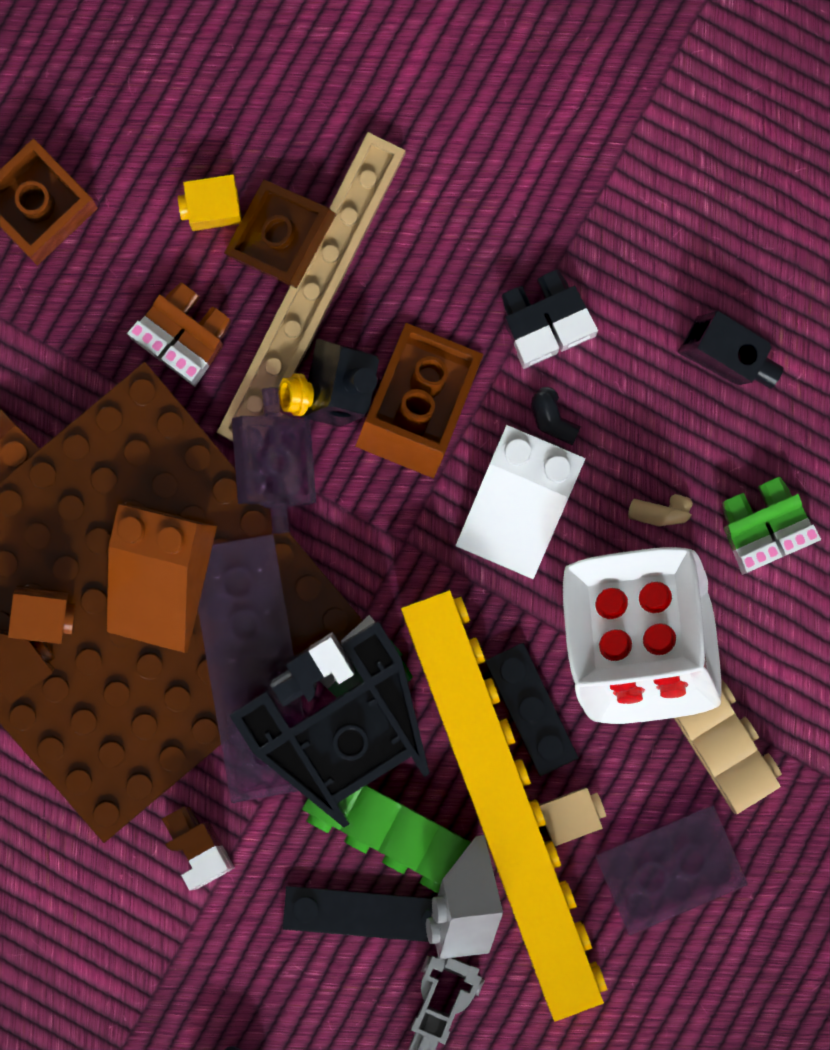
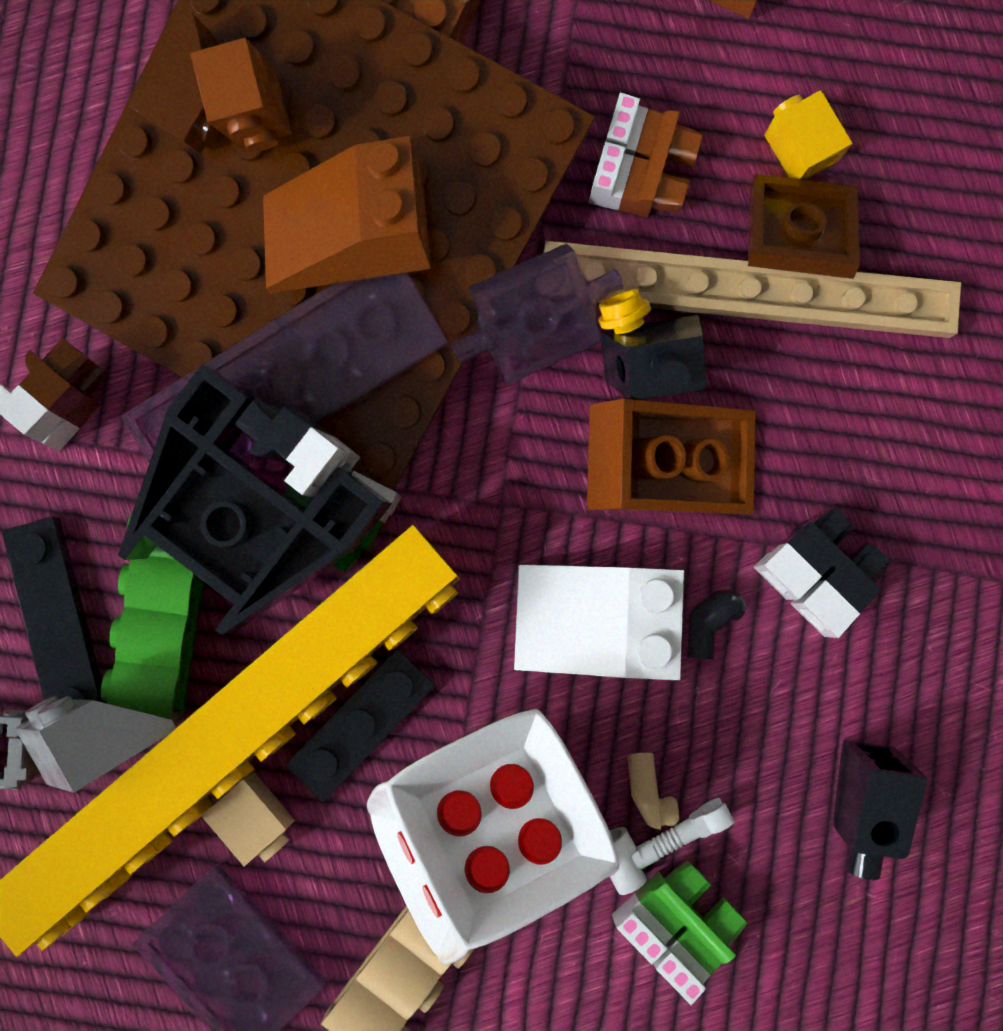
camera: 65 degrees right, 0 degrees up
(710, 550) = (707, 820): none -> white brick

